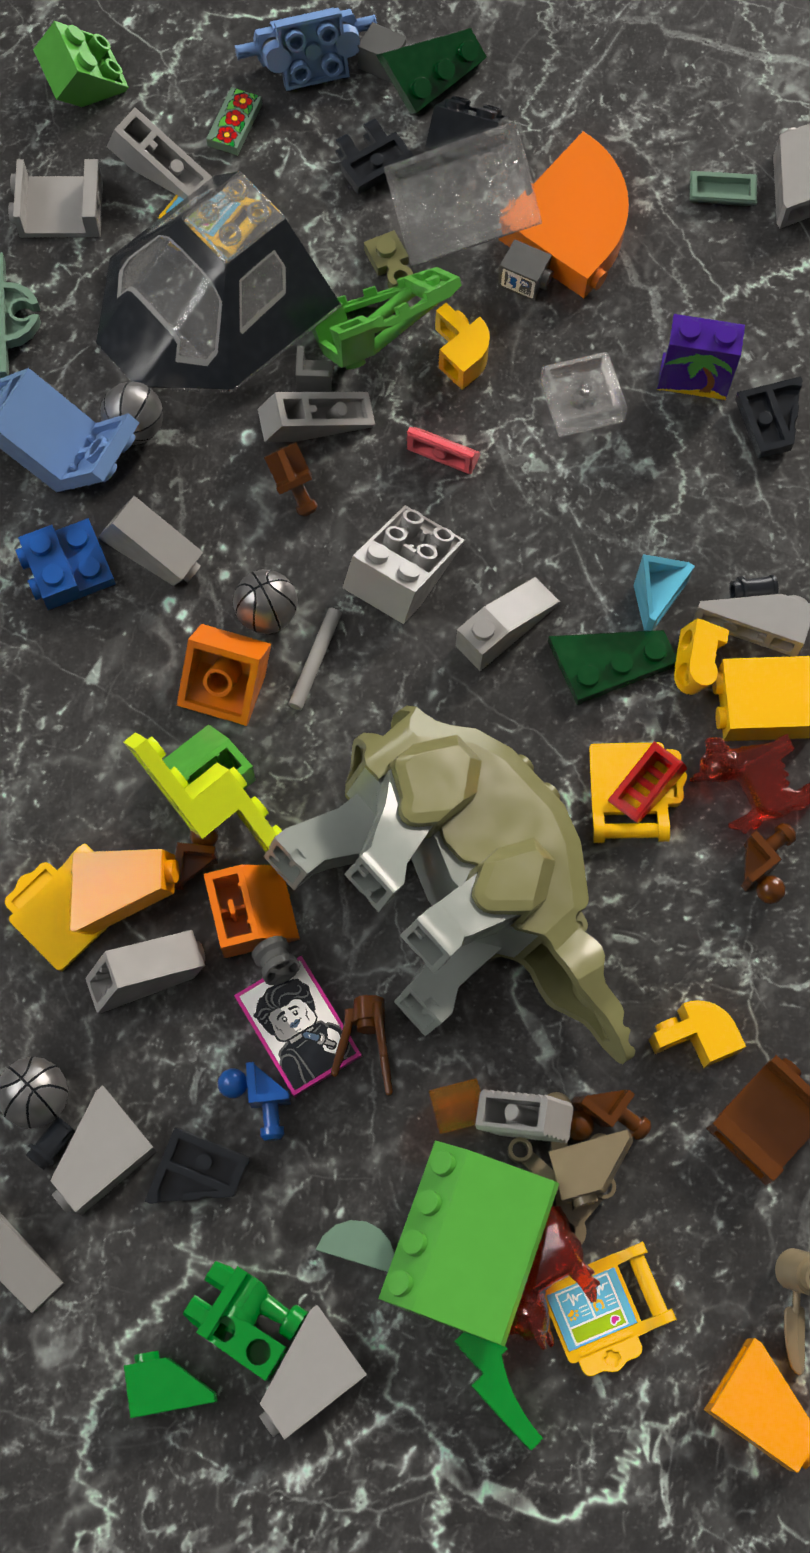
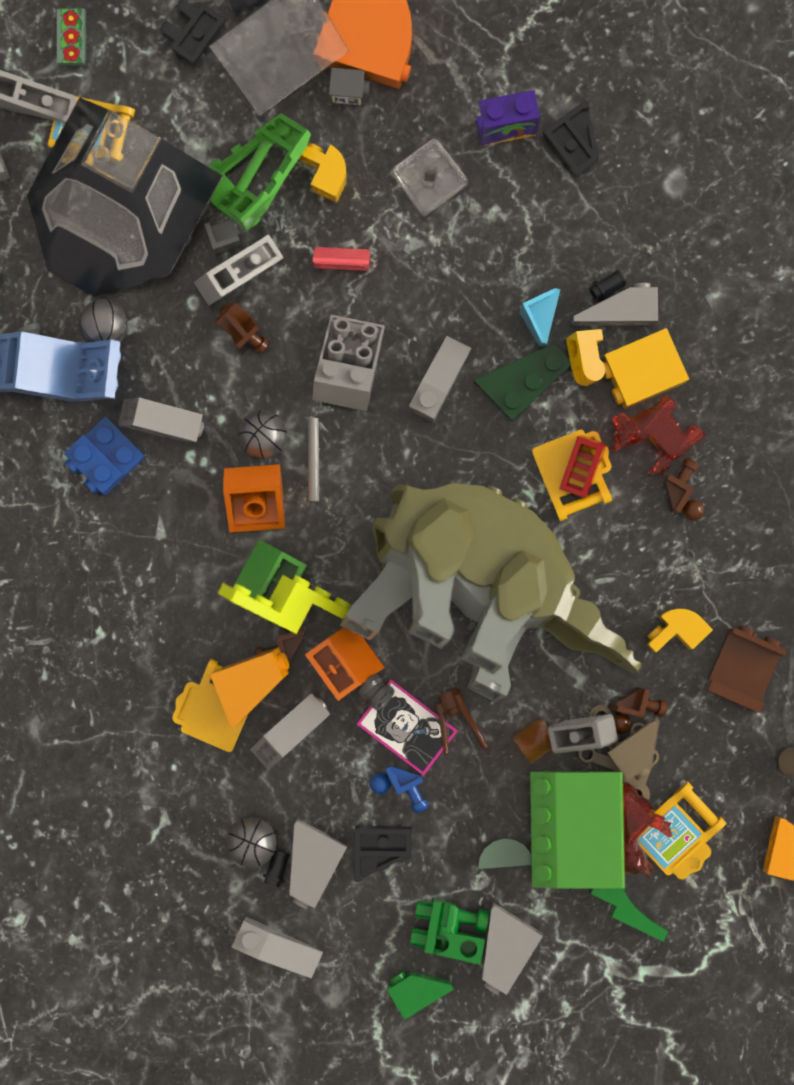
camera: 15 degrees left, 15 degrees up
(388, 257) = (238, 112): olive plate -> none

